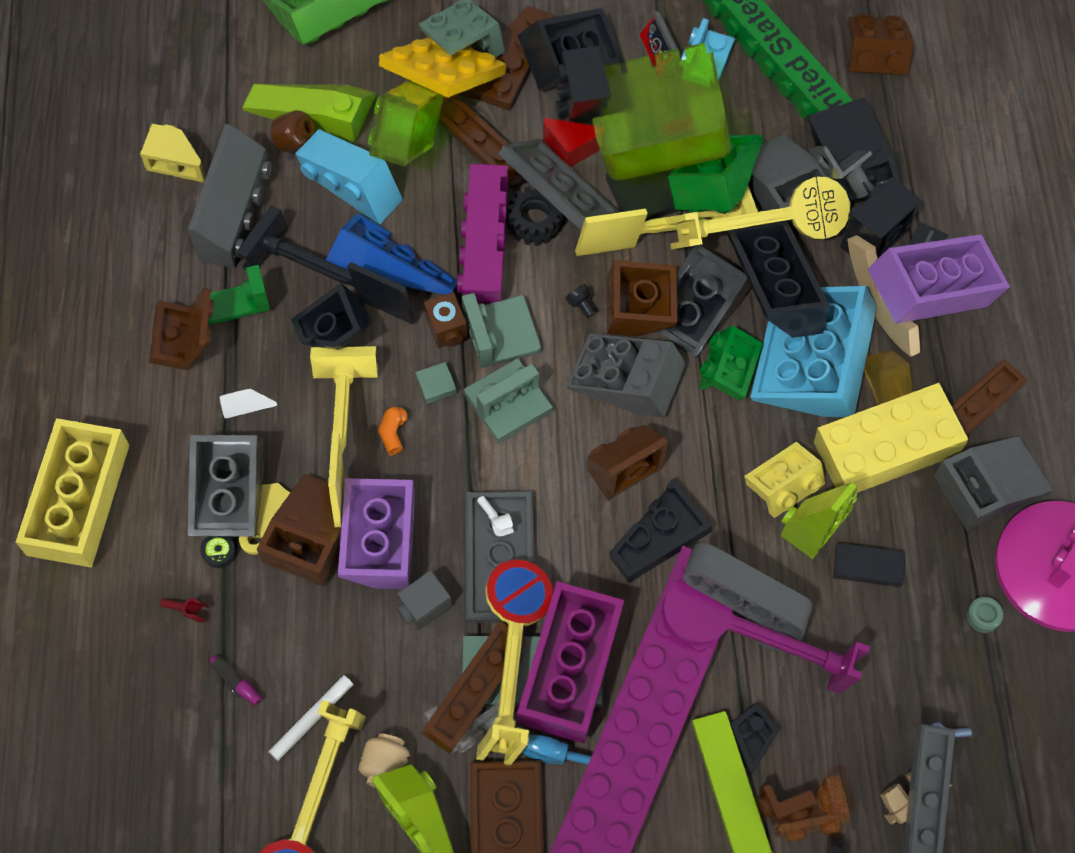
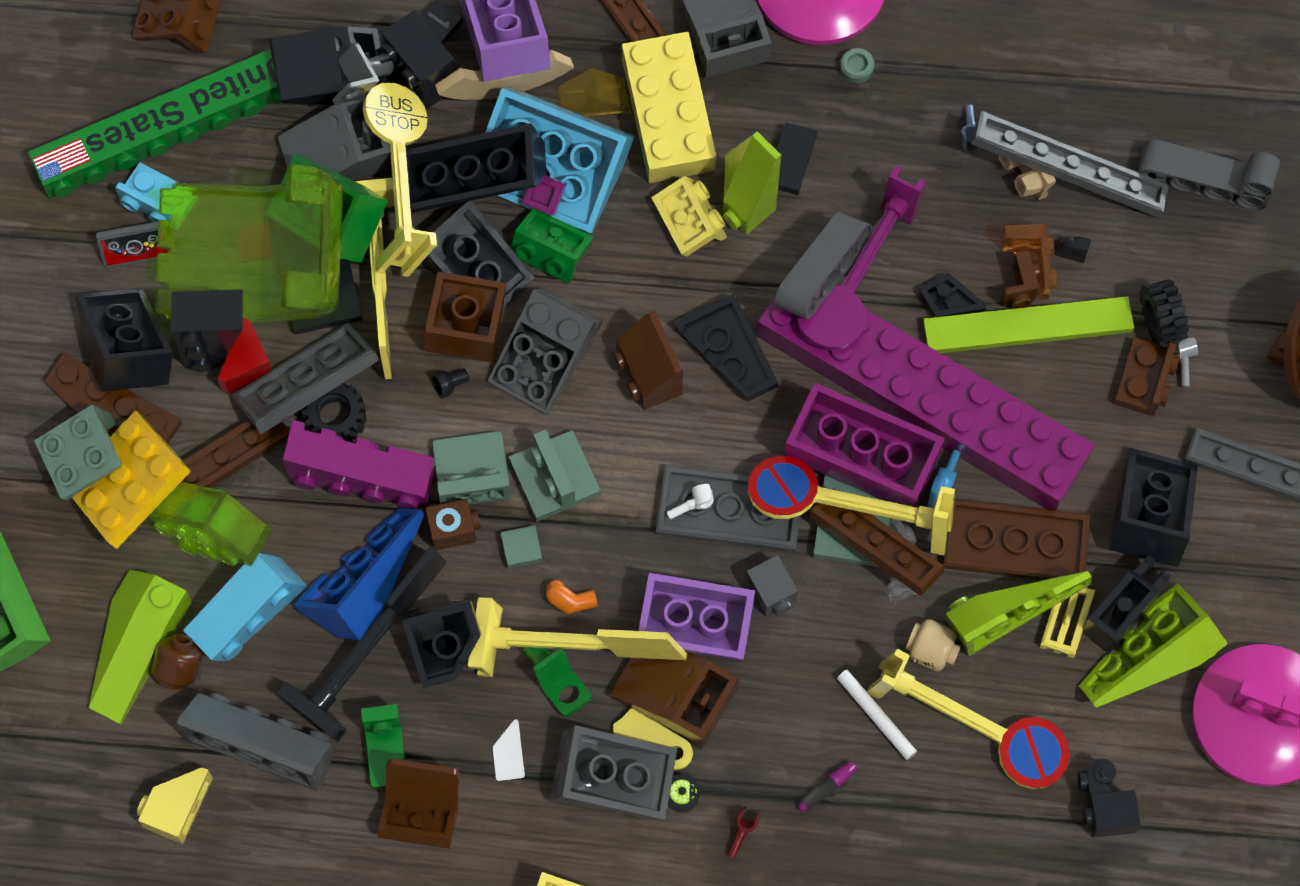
camera: 80 degrees left, 5 degrees up
(315, 426) = (554, 676): none -> green bracket
(777, 348) = (546, 195): none -> magenta tile

